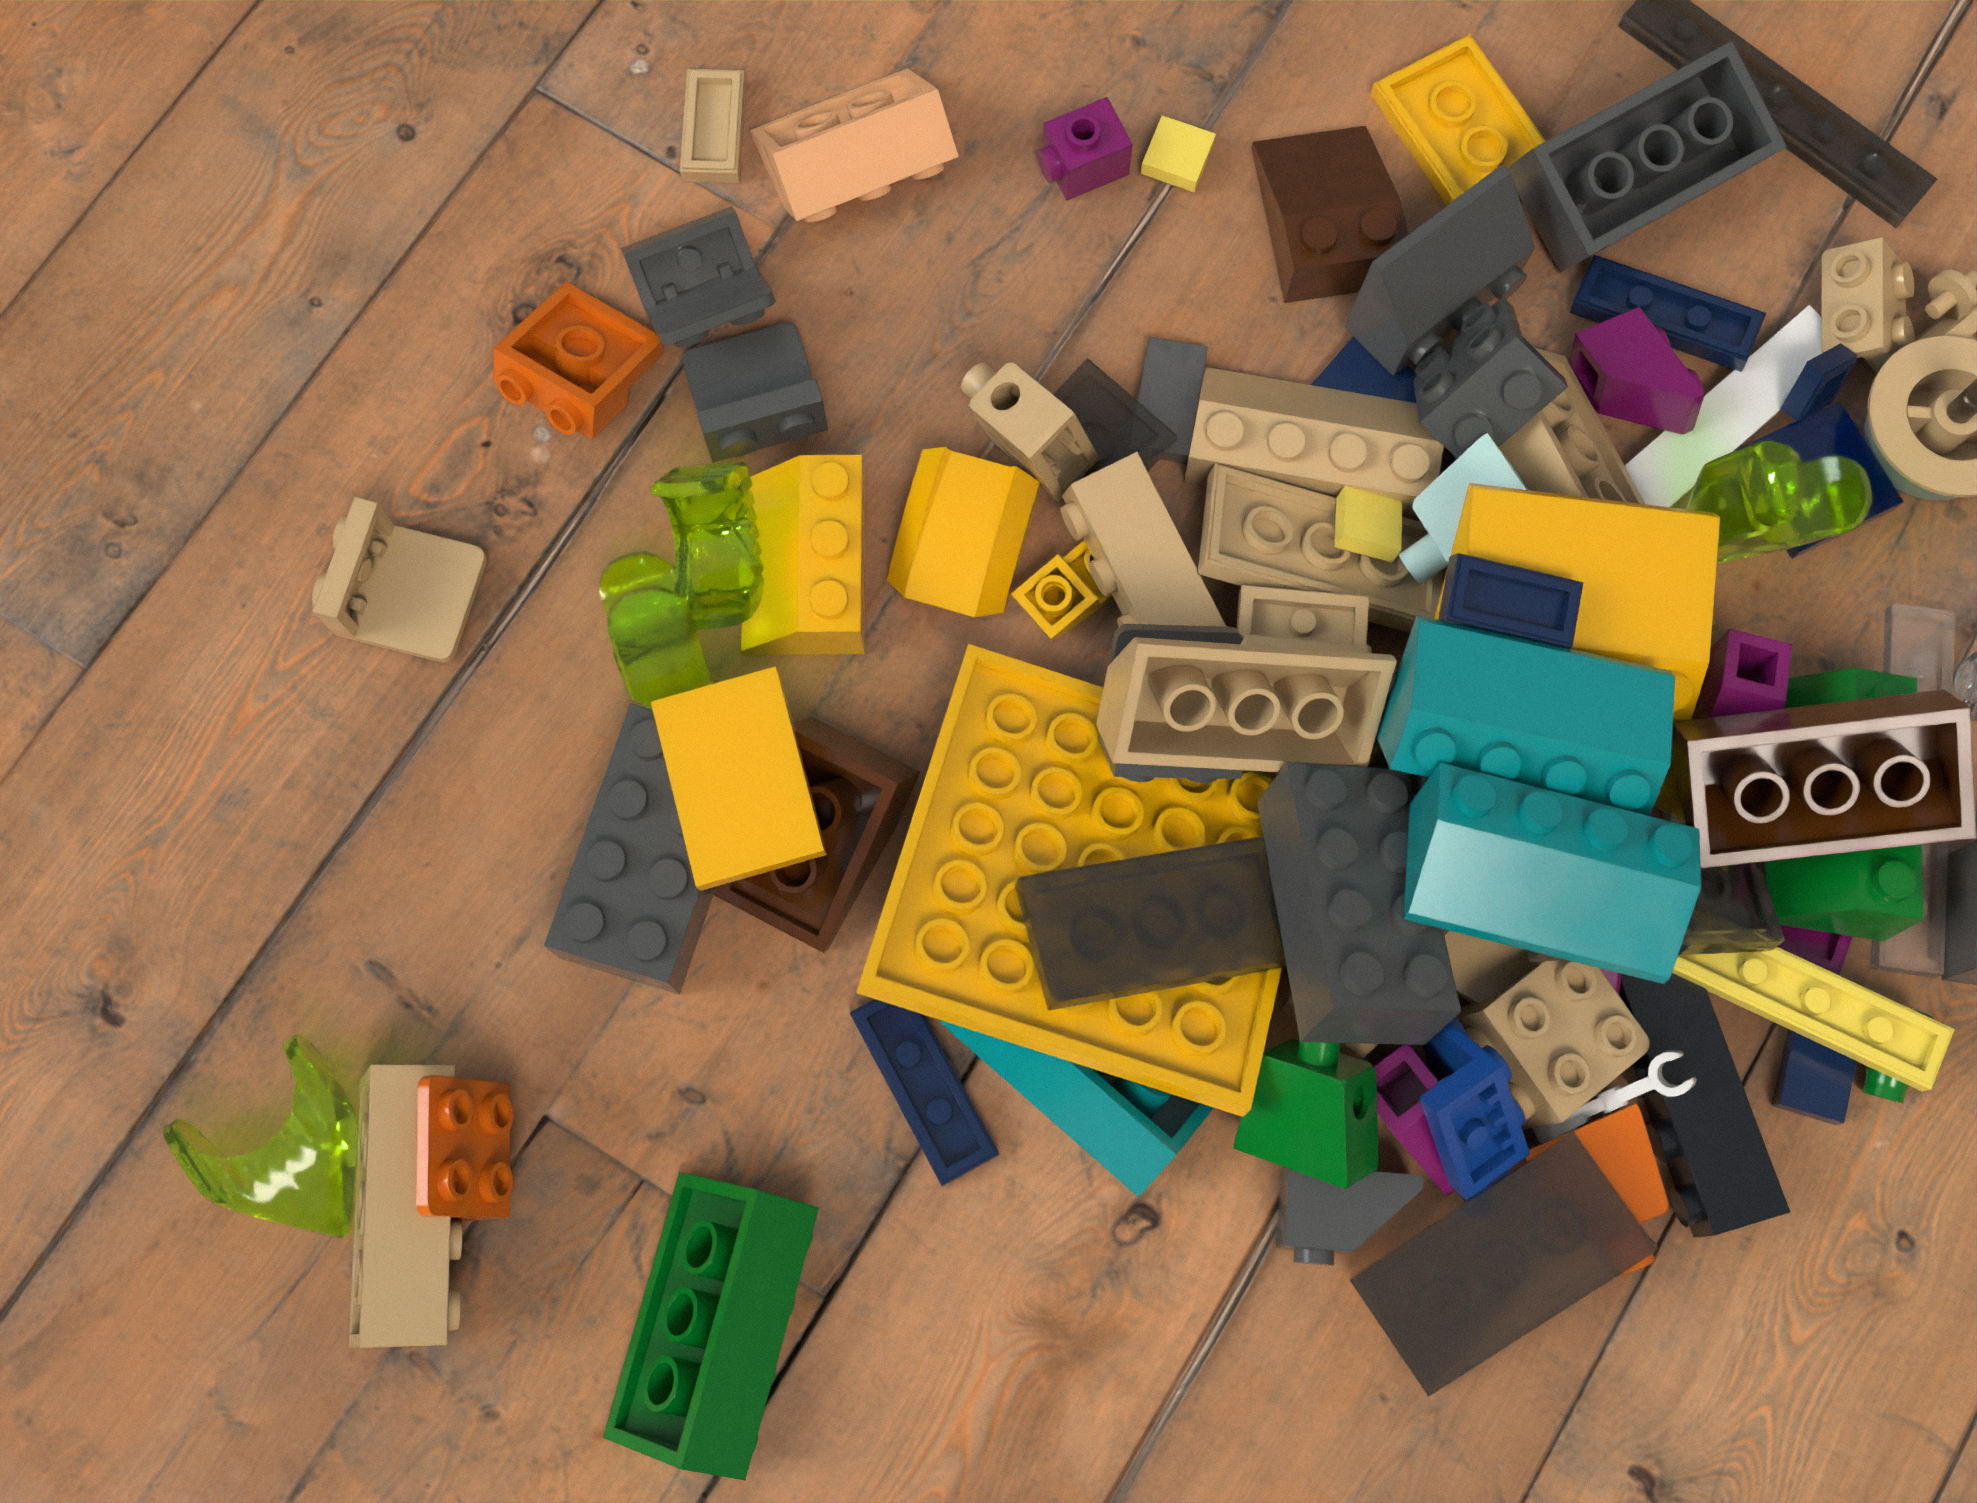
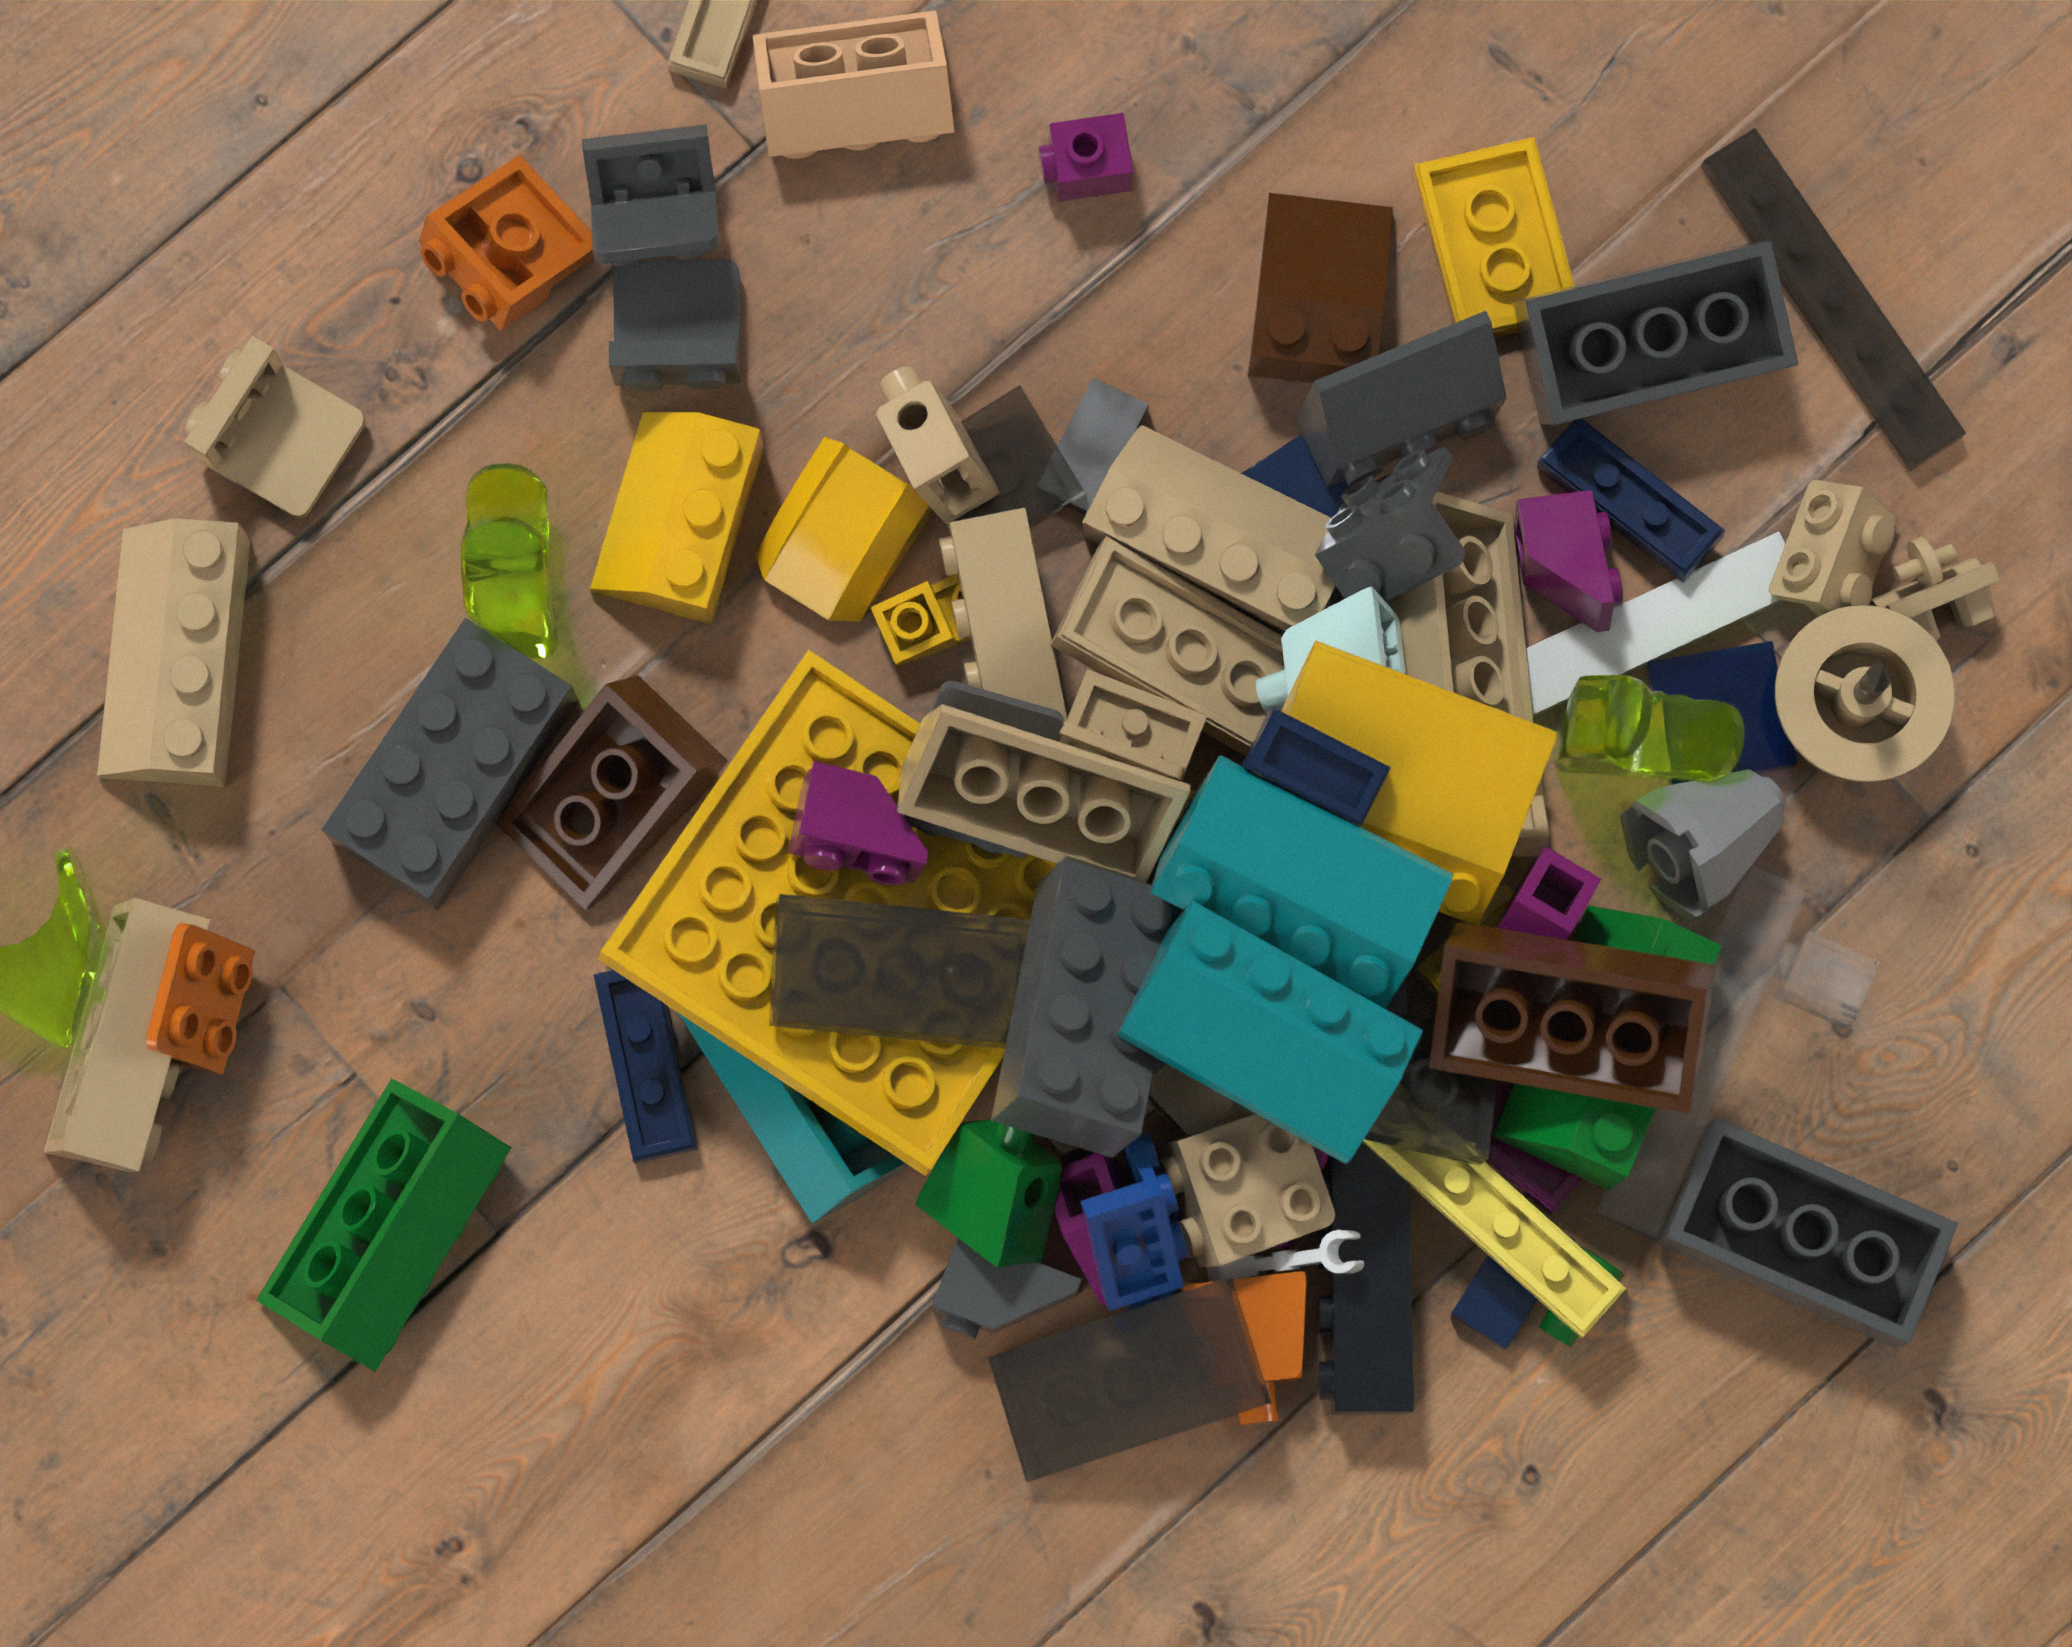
camera: 15 degrees right, 5 degrees up
(358, 818) = (174, 652): none -> tan slope
(714, 541) = (589, 483): clear neon green animal -> none
(738, 778) = (546, 722): yellow tile -> none
(1070, 790) = (854, 824): none -> magenta slope
(1178, 153) = (1187, 184): light yellow tile -> none
(1368, 524) = (1239, 639): light yellow tile -> none
(1819, 382) = (1751, 617): dark blue tile -> none
(1849, 592) = (1702, 836): none -> light grey cone

